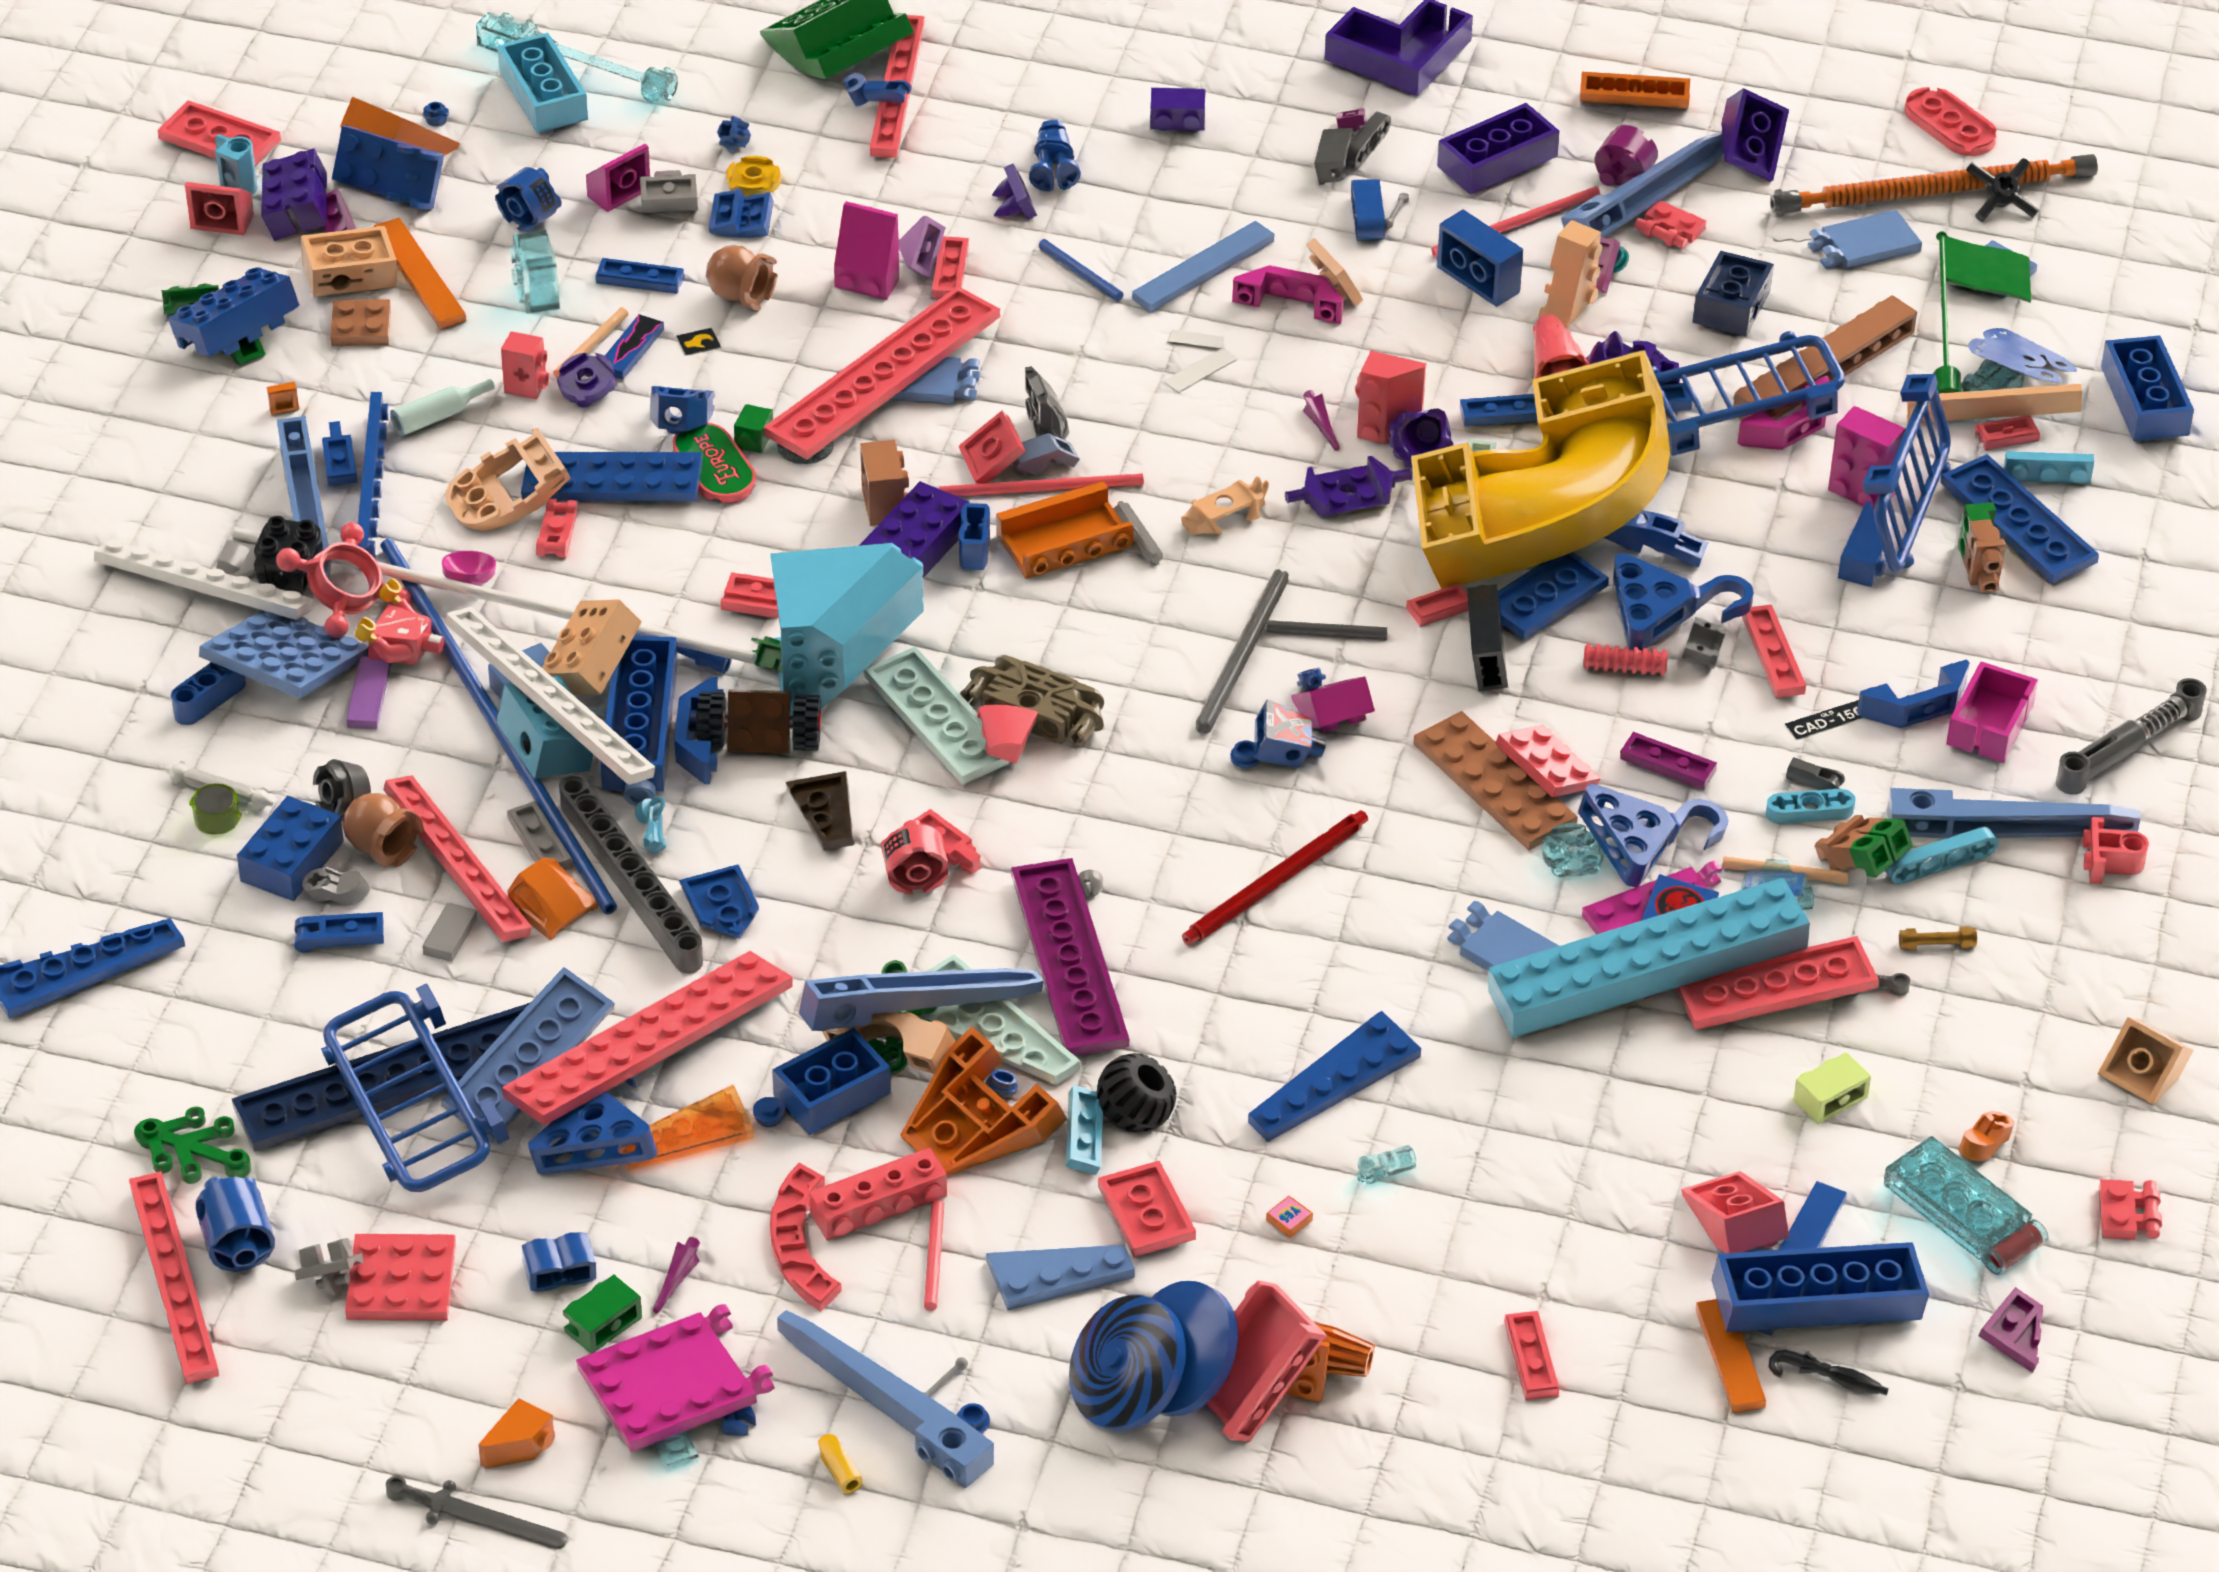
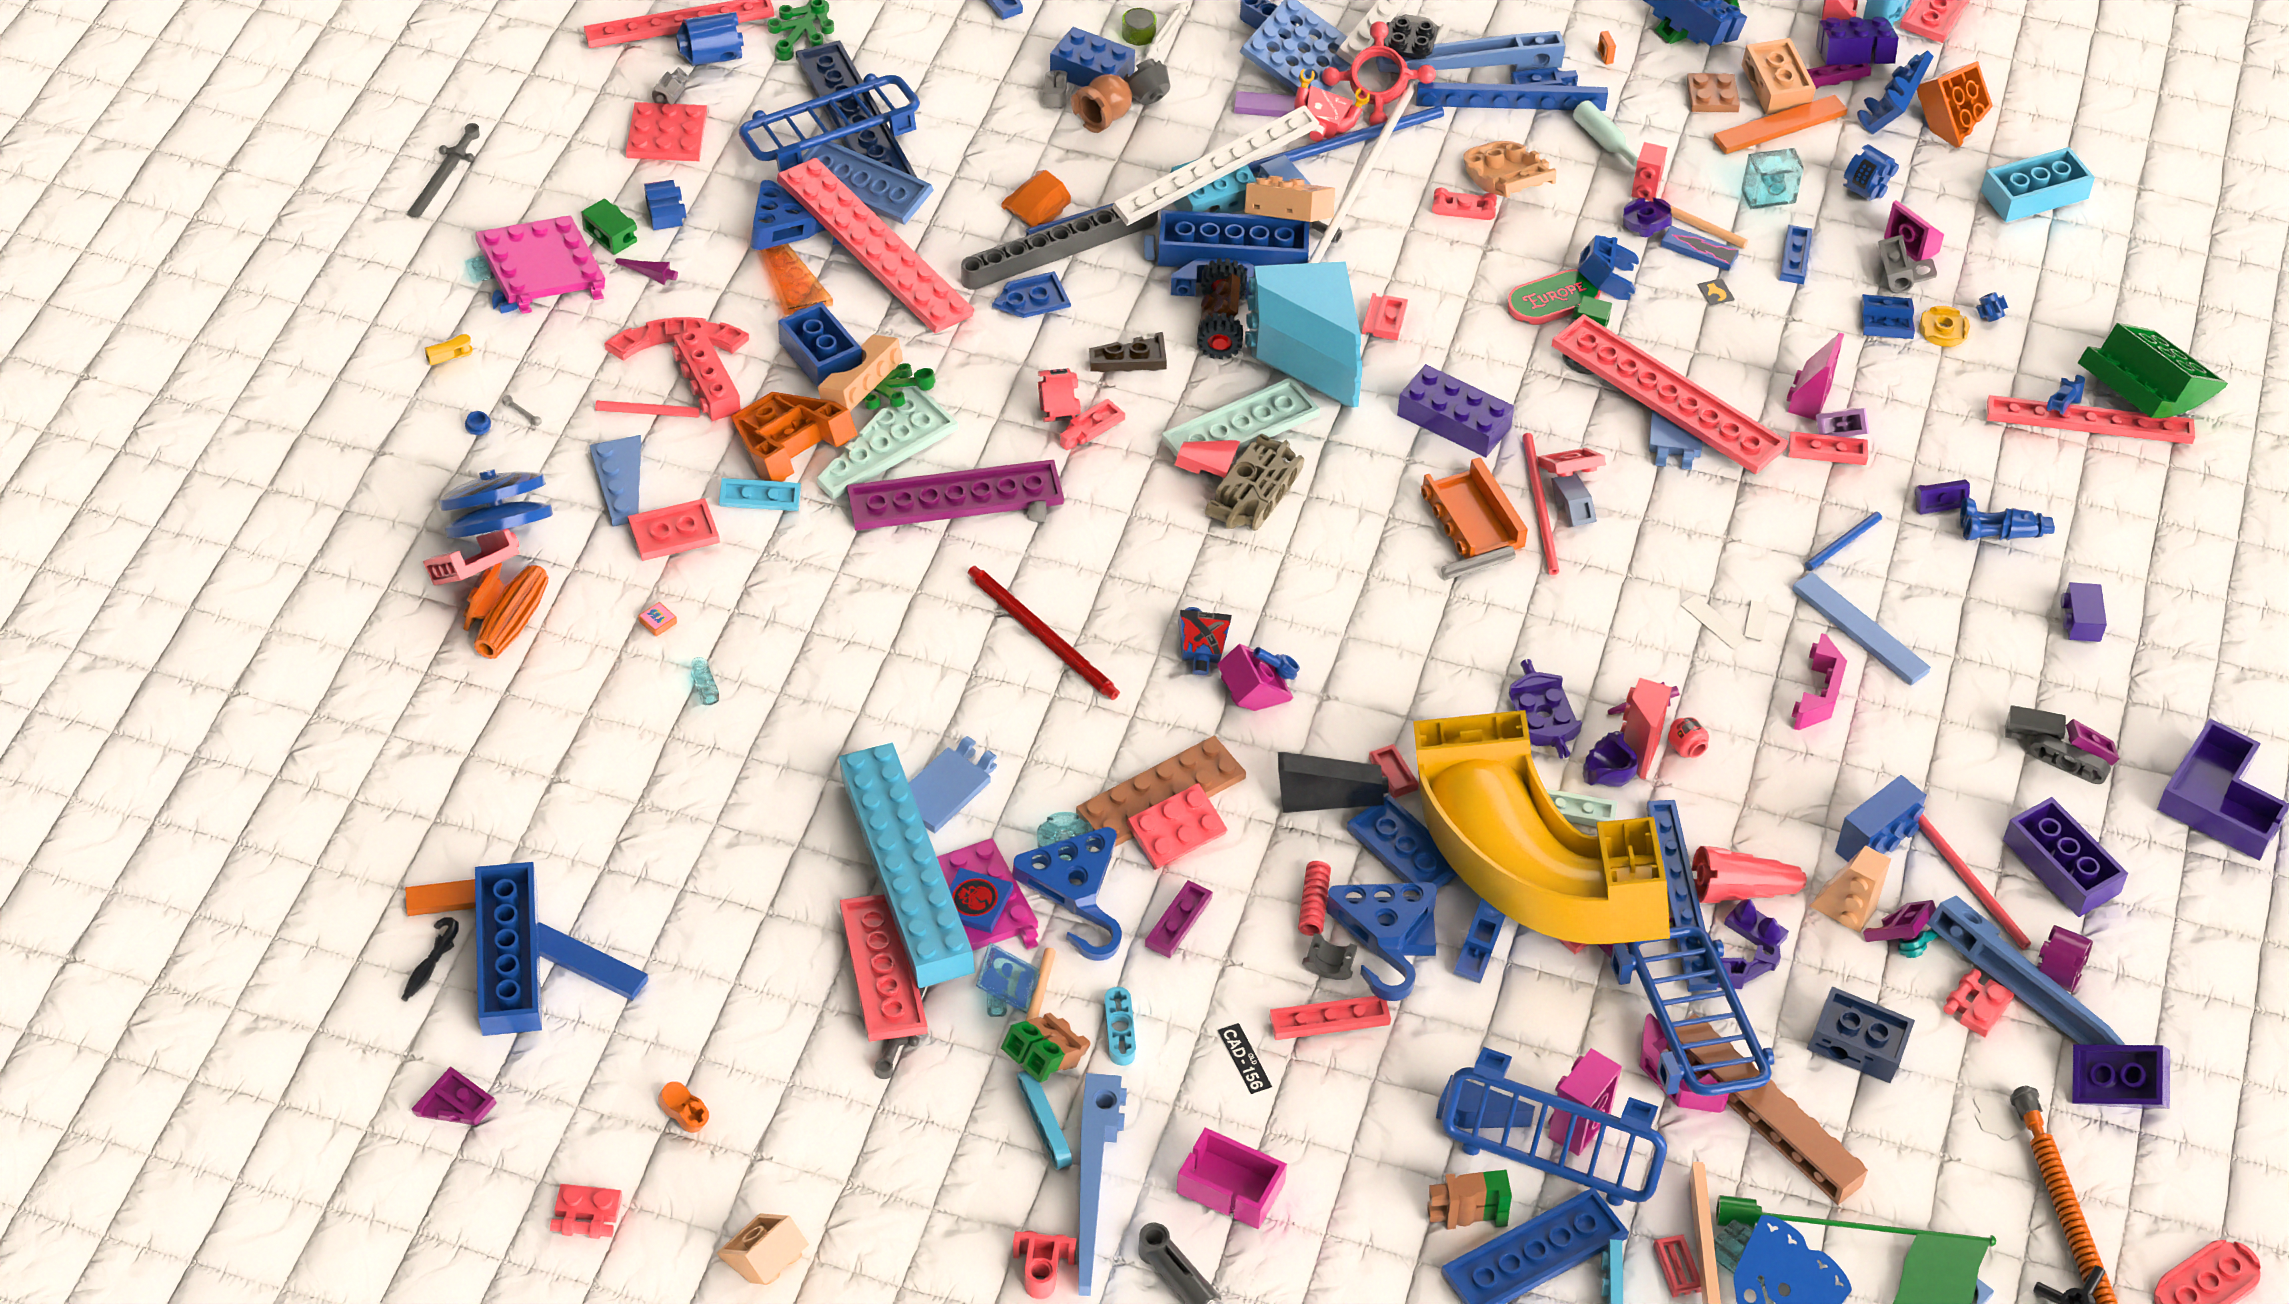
camera: 90 degrees right, 5 degrees up
(338, 930) = (1009, 93): blue plate -> none
(435, 113) = (1994, 130): blue plate -> none
(449, 932) = (1008, 151): light grey tile -> none
(460, 861) = (1082, 148): coral plate -> none
(469, 567) = (1404, 142): dark pink piece -> none
(501, 29) = (2108, 174): clear light blue bar -> none
(517, 1436) = (505, 185): orange slope -> none
(538, 834) = (1104, 195): light grey tile -> none
(625, 476) = (1528, 236): blue plate -> none
(648, 813) = (1101, 257): medium azure piece -> none
(741, 276) = (1783, 304): nougat tile -> none
(855, 998) = (875, 342): medium blue piece -> none
(882, 478) = (1518, 382): nougat brick -> none
(939, 1433) = (451, 406): medium blue piece -> none
(974, 536) = (1454, 445): blue brick -> none
(1002, 1083) = (816, 449): blue plate -> none
(1044, 406) = (1626, 496): dark grey slope -> none
(1136, 1092) = (793, 508): black wheel -> none
(1204, 512) = (1525, 632): light nougat piece -> none
(1242, 651) = (1328, 626): dark grey axle -> none
(1327, 629) = (1357, 688): dark grey bar -> none
(1333, 272) = (1843, 709): light nougat plate -> none
(1347, 1068) = (822, 672): blue wing -> none
(1368, 209) = (1959, 752): blue beam -> none
(1402, 198) = (1991, 788): light grey hinge -> none
(1531, 1355) = (487, 763): coral tile -> none
(1635, 90) = (2187, 986): orange brick -> none
(1738, 1212) = (615, 908): coral slope -> none
(1814, 775) = (1159, 1031): dark grey bar -> none
(1831, 1087) = (753, 994): yellowish green brick -> none
(1865, 240) = (1980, 1174): medium blue tile -> none
(1883, 705) = (1249, 1100): blue slope -> none
(1965, 937) = (939, 1123): pearl gold bar -> none
(1965, 1205) = (601, 1079): clear light blue hinge -> none

